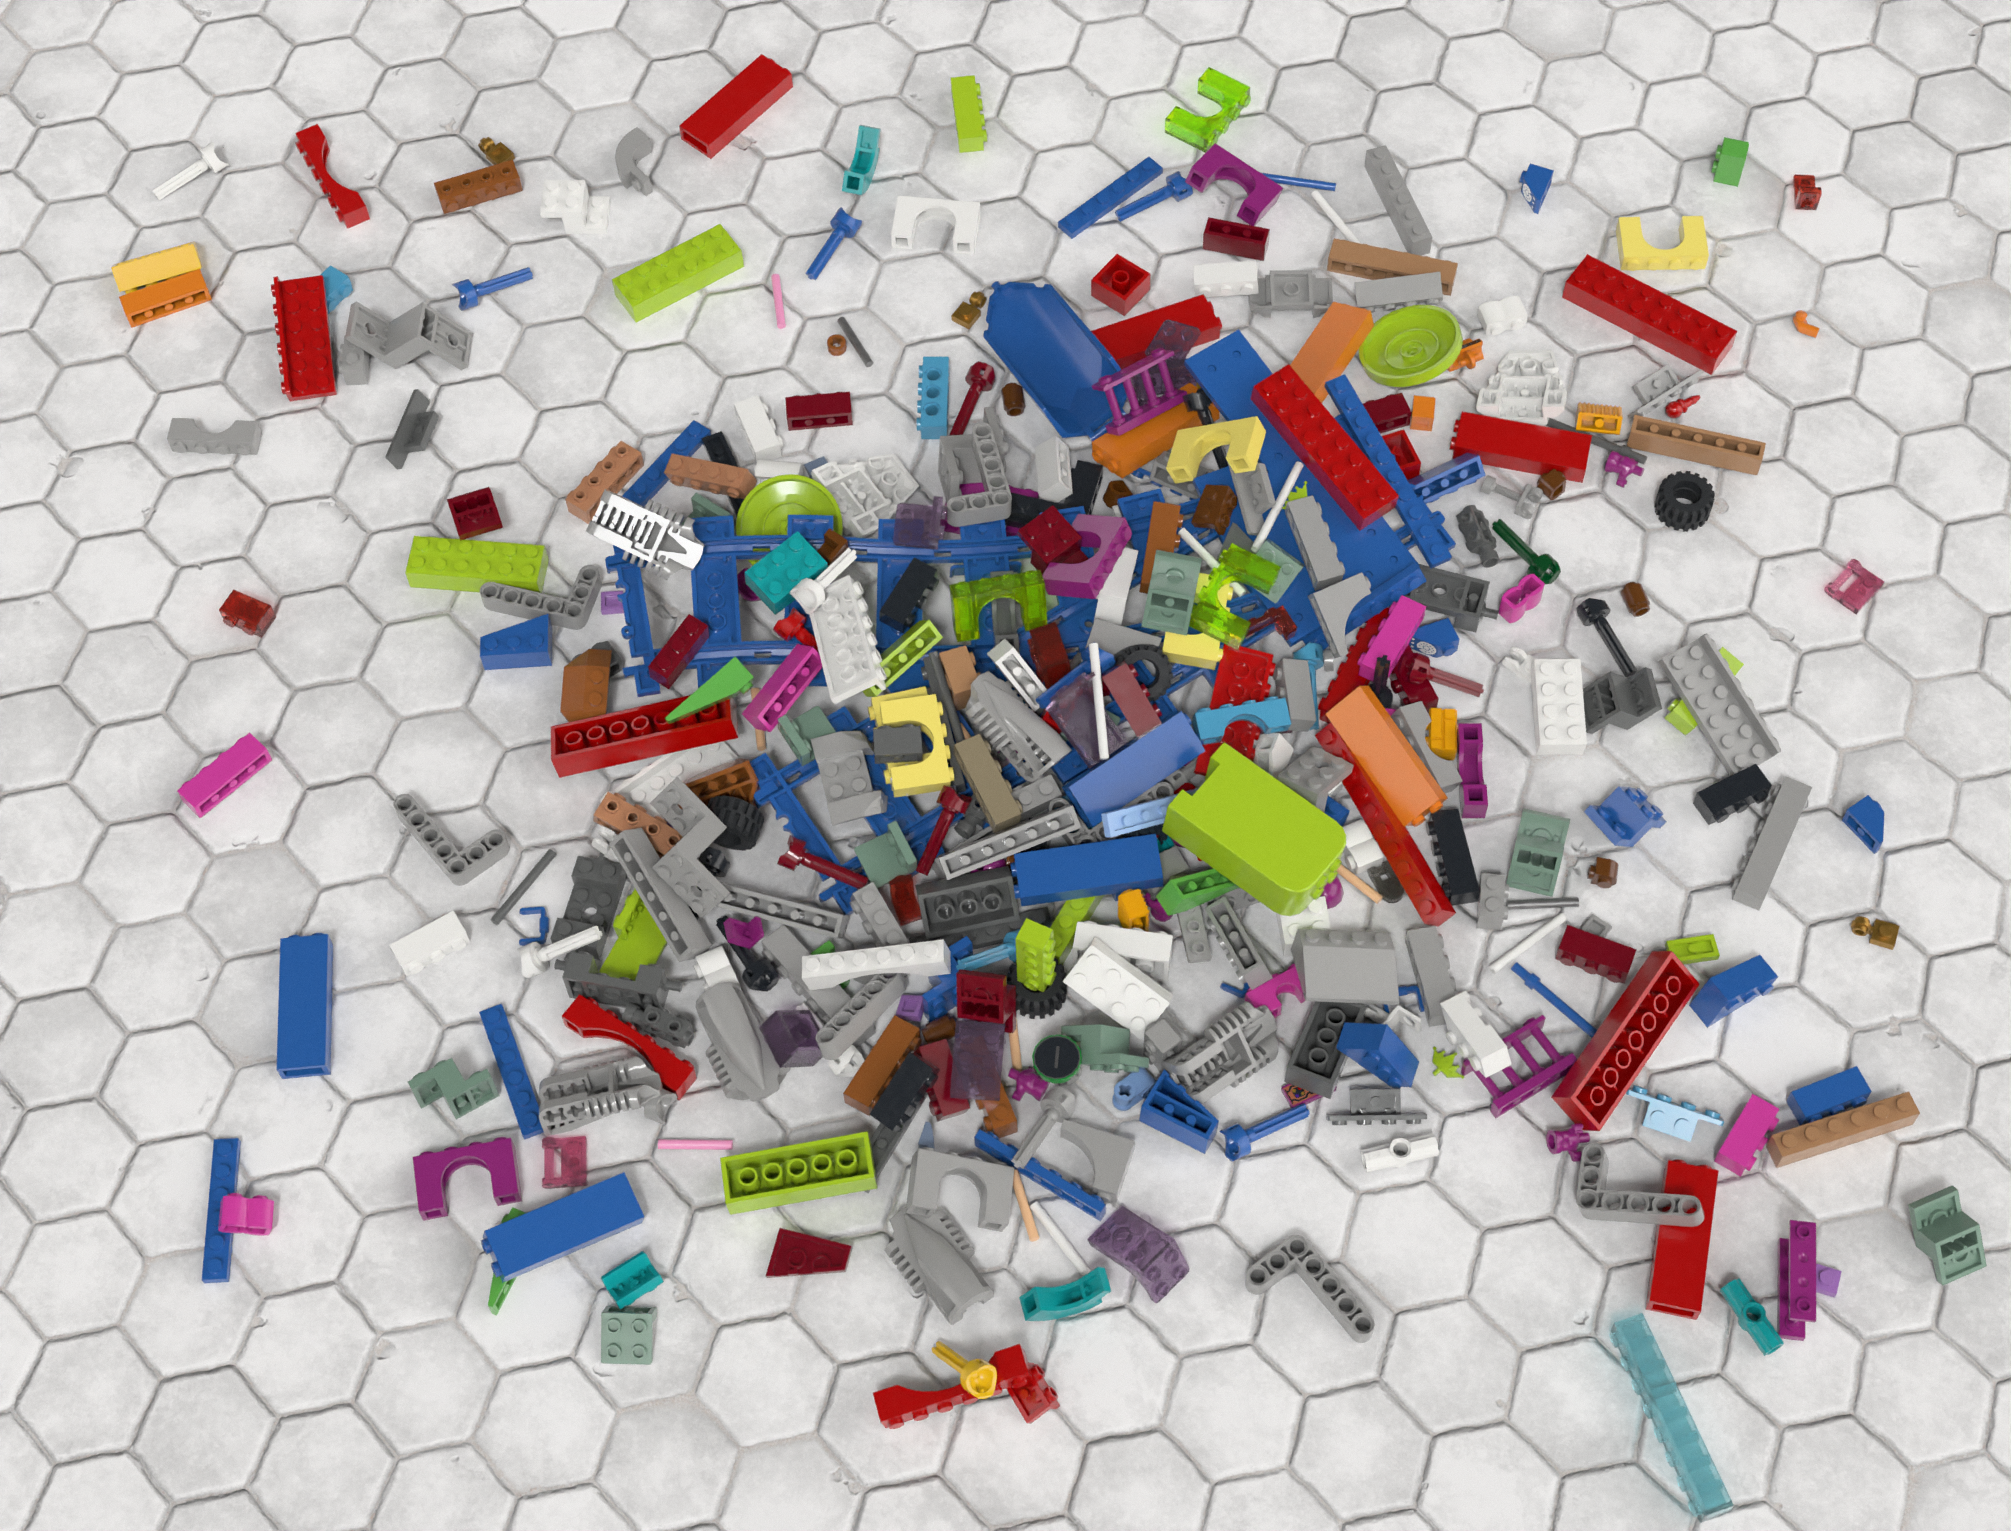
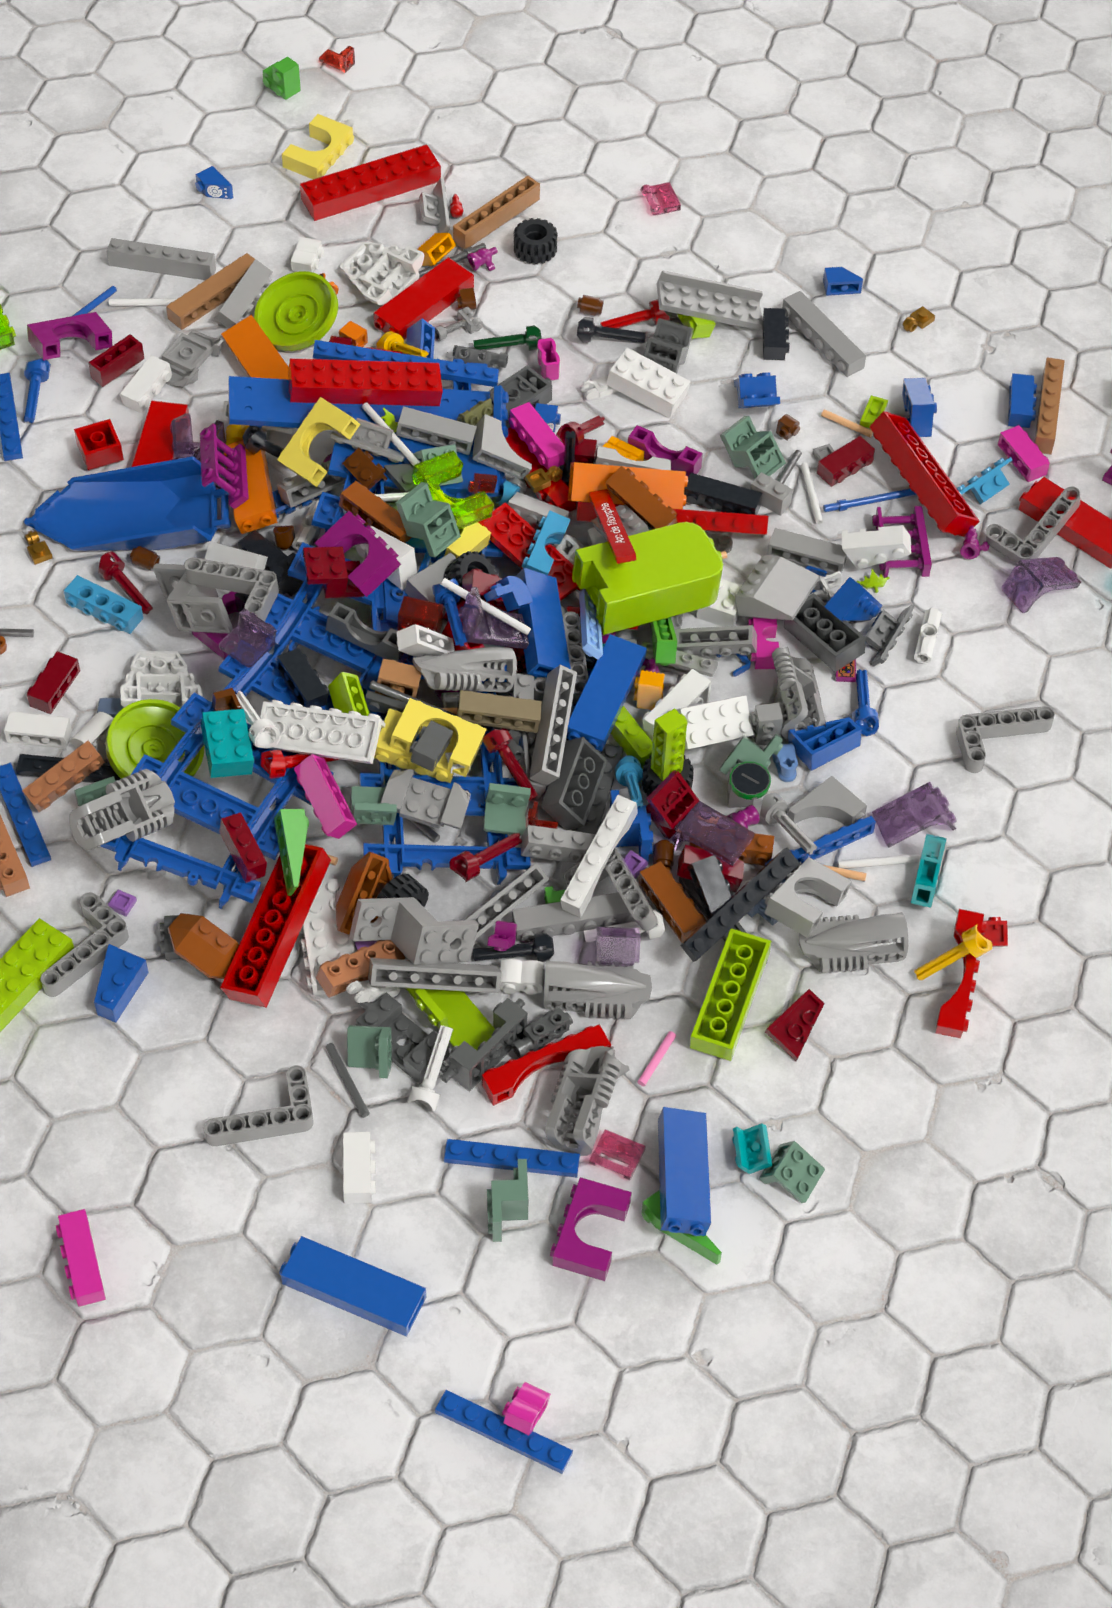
camera: 65 degrees left, 5 degrees down
(543, 925) = (394, 1081): blue piece -> none
(557, 886) = (370, 1048): none -> sand green bracket
(902, 1126) = (739, 904): none -> black plate
(972, 596) = (364, 604): clear neon green arch -> none
(1136, 713) = (513, 593): none -> brick
(1287, 761) = (612, 526): none -> red tile
(1338, 672) = (539, 479): none -> pearl gold plate
(1362, 777) = (640, 500): none -> dark orange brick
(1377, 571) = (476, 412): none -> olive hinge
(1433, 453) = (395, 342): none -> yellow piece
(1565, 1235) = (1036, 577): none -> clear purple bracket
(1641, 644) = (637, 317): none -> red piece
(1658, 924) = (847, 423): none -> light nougat bar
(1802, 326) = (435, 116): orange arm -> none

